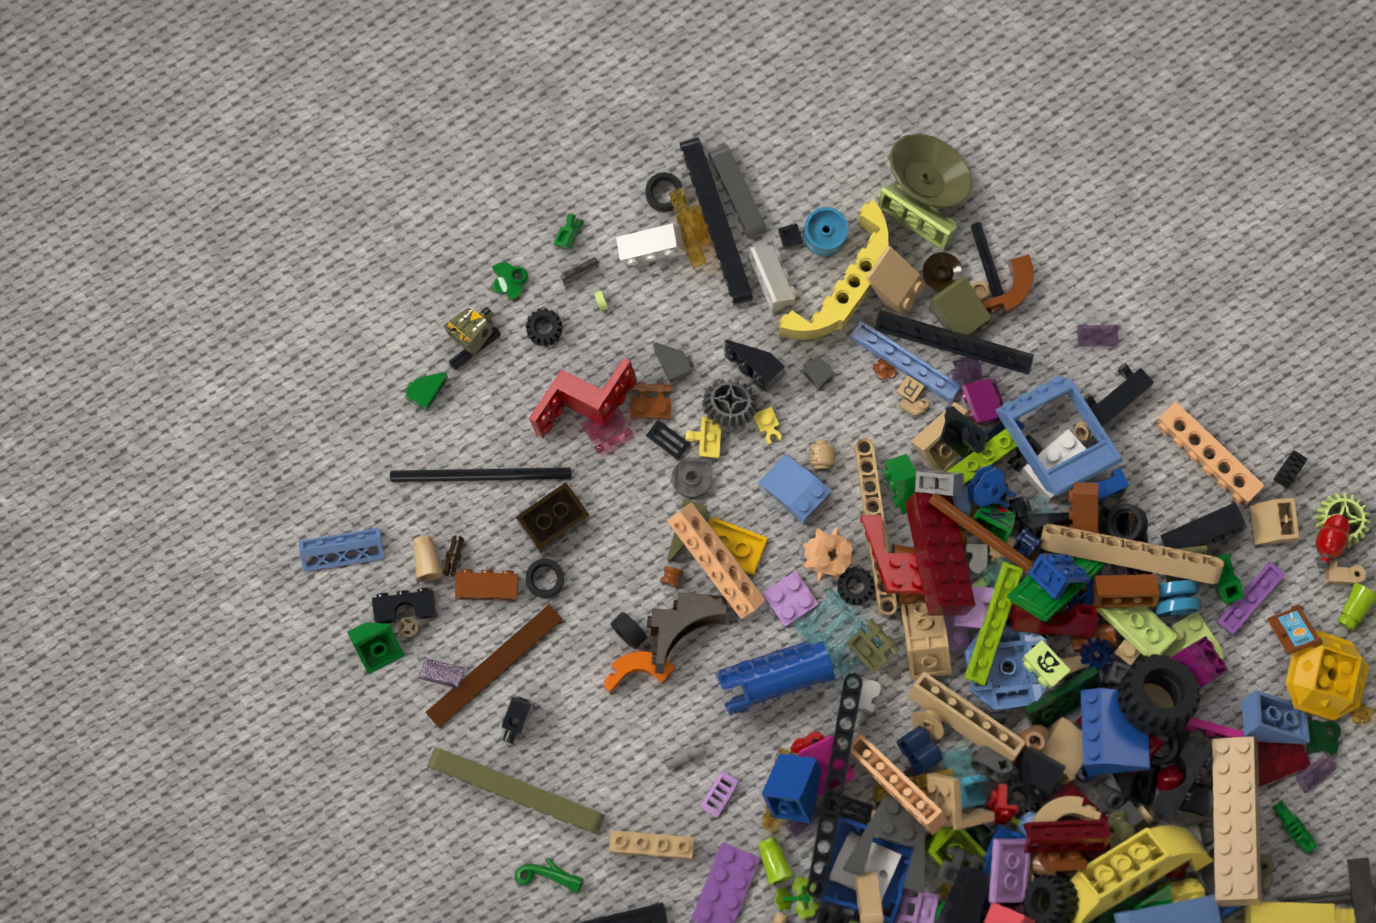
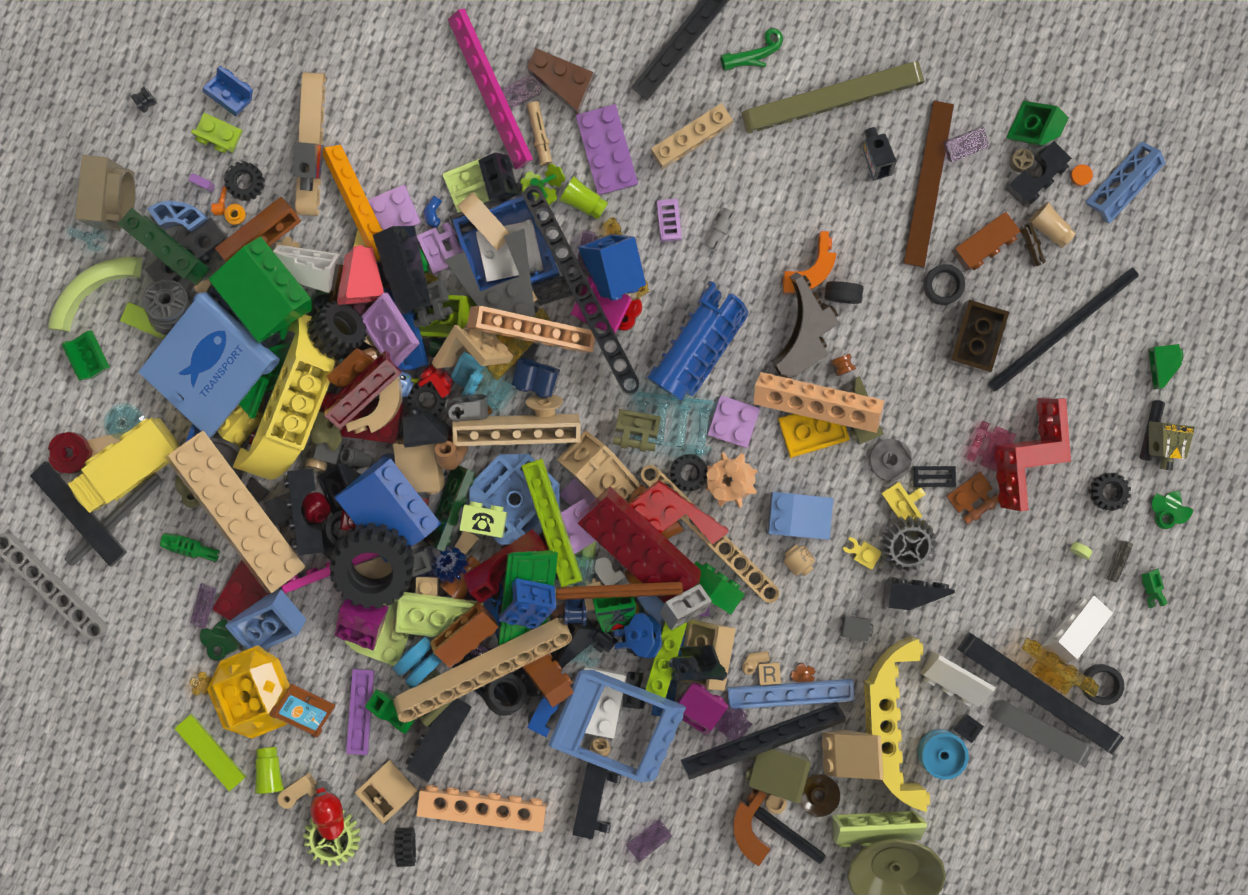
camera: 150 degrees right, 10 degrees up
(371, 581) = (1081, 175): none -> orange tile
(673, 362) = (981, 544): dark grey slope -> none
(869, 692) = (612, 390): white leg -> none
(999, 716) = (493, 451): black tile -> none

